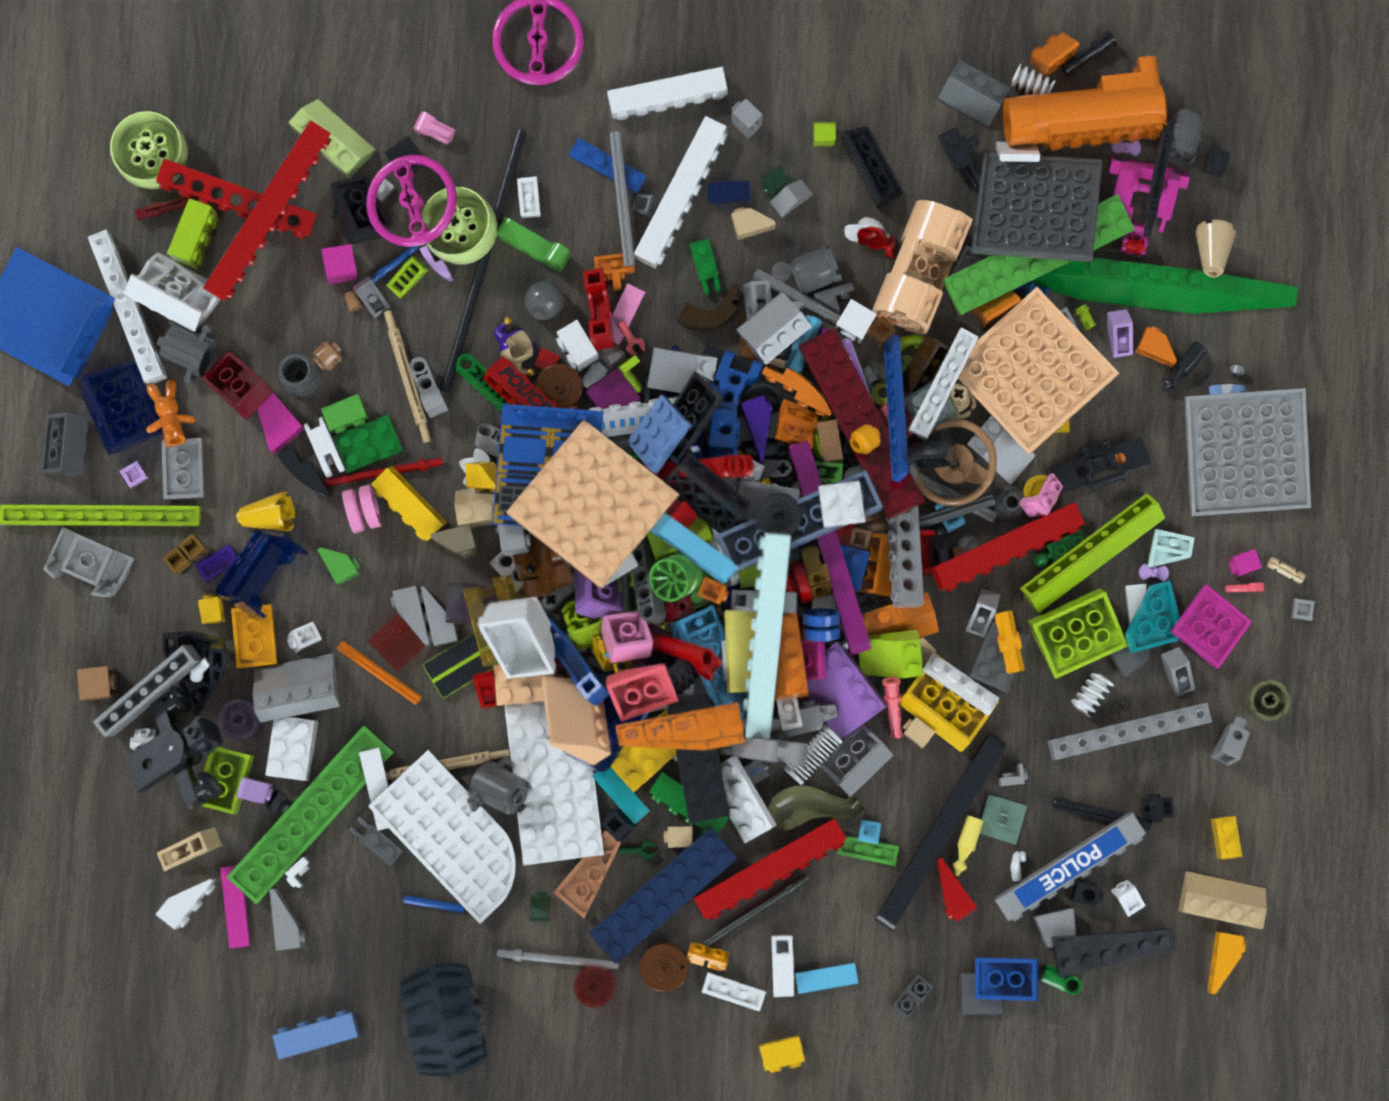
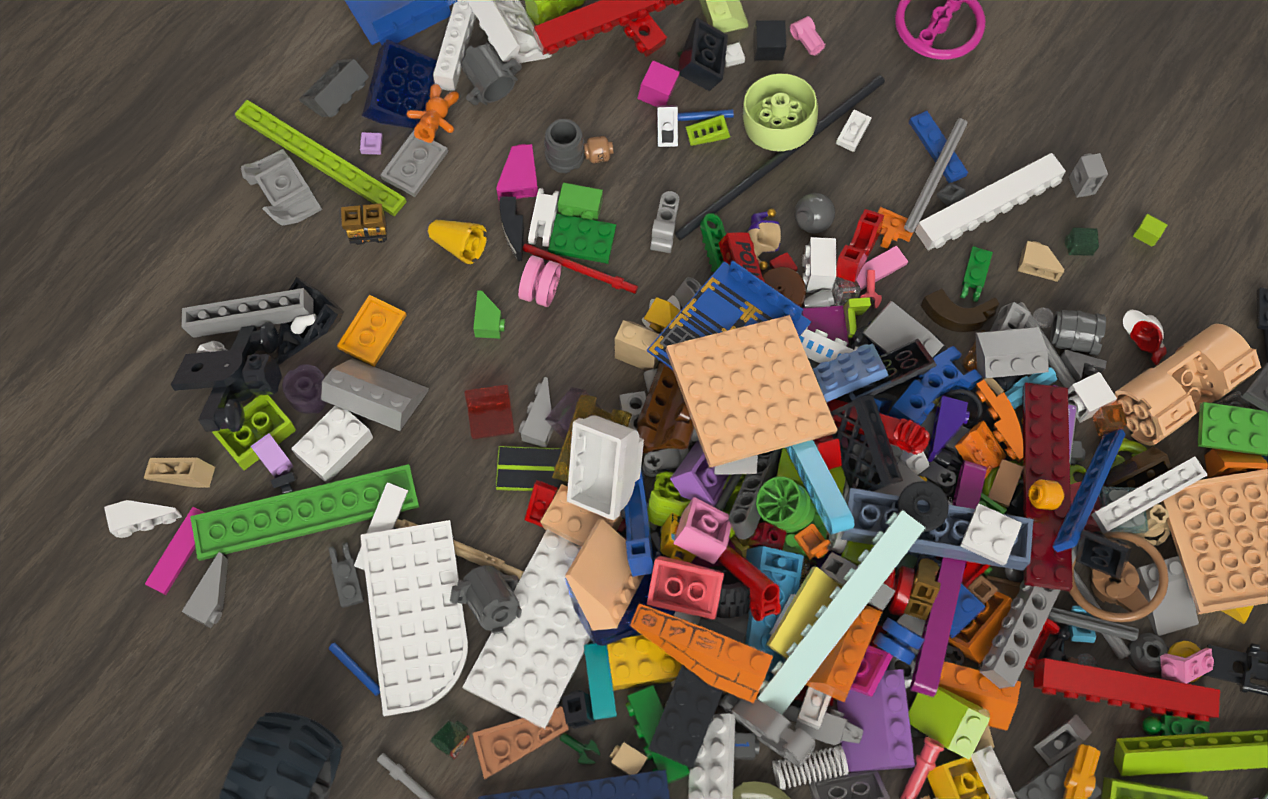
camera: 30 degrees right, 15 degrees down
(97, 683) = (211, 282): medium nougat head -> none
(211, 609) = (352, 286): yellow brick -> none
(216, 563) = (386, 254): dark purple tile -> none
(237, 385) = (507, 122): dark red brick -> none
(254, 569) = (415, 275): clear blue windscreen -> none
(299, 868) = (258, 553): white bracket -> none
(303, 637) = (413, 357): white bracket -> none
(316, 1035) = (158, 718): medium blue brick -> none
(353, 301) = (649, 122): medium nougat hinge -> none
(379, 672) = (456, 430): orange axle -> none
(398, 166) = (753, 68): dark pink piece -> none
(407, 377) = (653, 206): tan axle -> none
(408, 503) = (583, 304): yellow brick -> none
(411, 610) = (522, 392): light grey slope -> none
(440, 266) = (740, 136): lavender slope -> none
(458, 540) = (604, 358): dark tan slope -> none
(513, 540) = (656, 380): light grey slope -> none
(528, 242) = (843, 182): bright green beam -> none
(667, 93) = (1028, 120): white brick -> none
(729, 191) = (1034, 225): clear blue slope -> none
(790, 197) = (1087, 263): light grey slope -> none
(871, 165) = (1177, 279): black slope -> none

